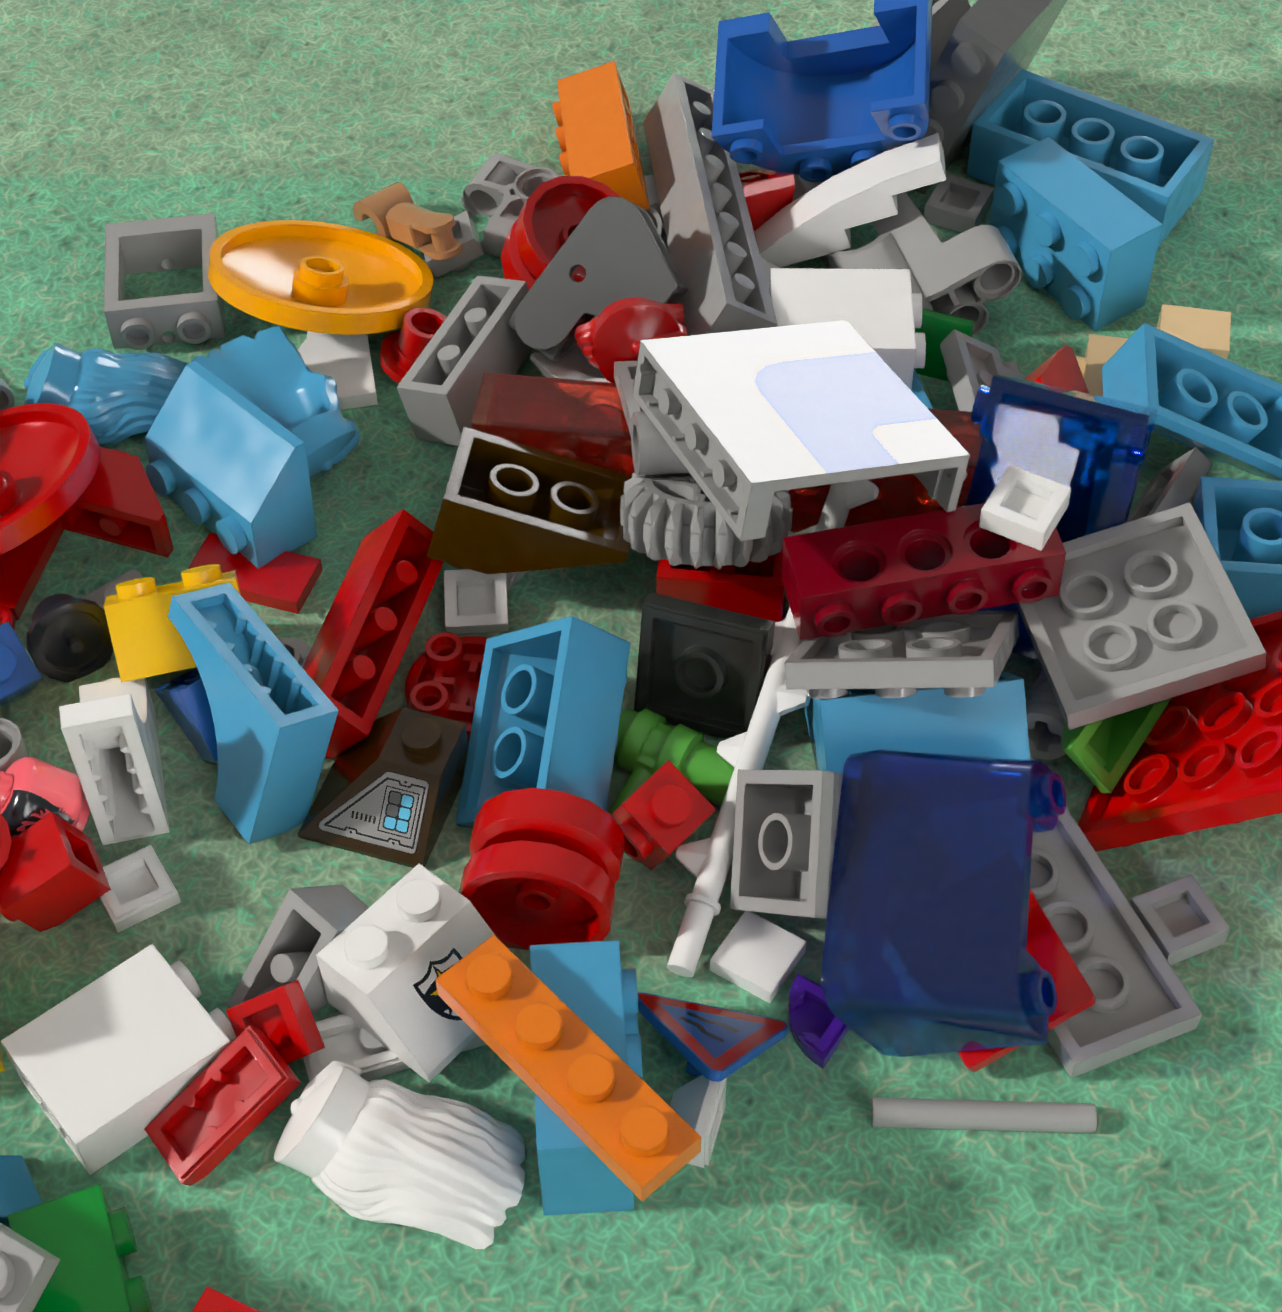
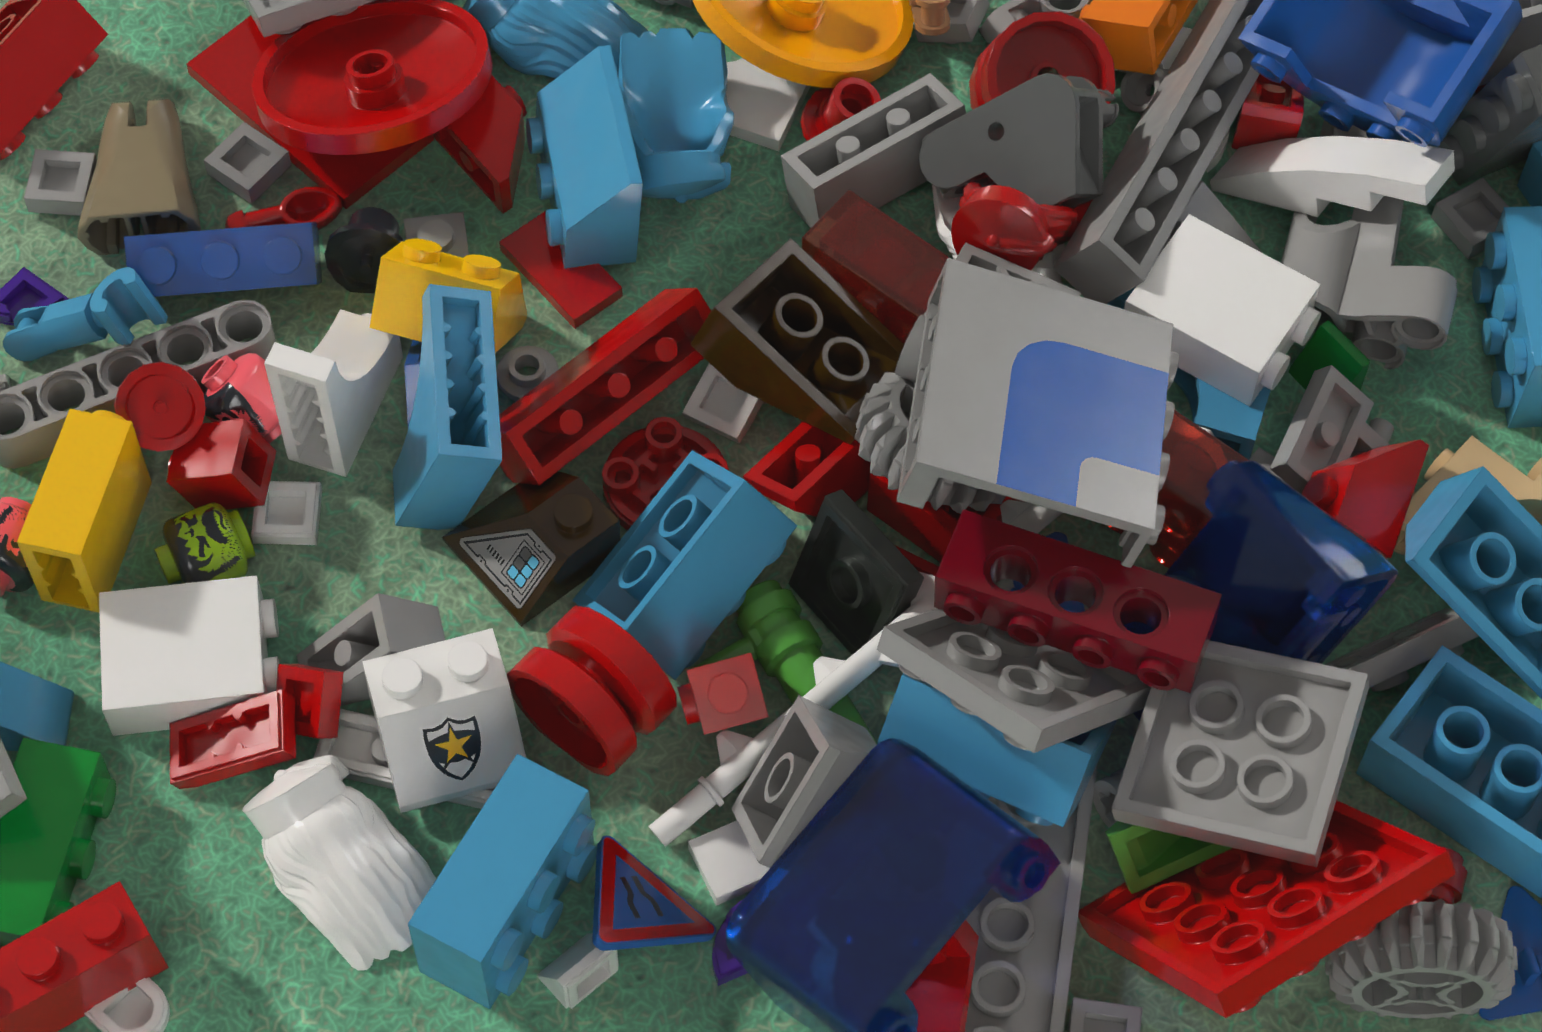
camera: 30 degrees right, 10 degrees up
(74, 951) = (205, 545): none -> head
(569, 1067) = (471, 872): orange plate -> none
(606, 597) = (808, 468): none -> red slope
(1025, 507) = (1188, 601): white tile -> none

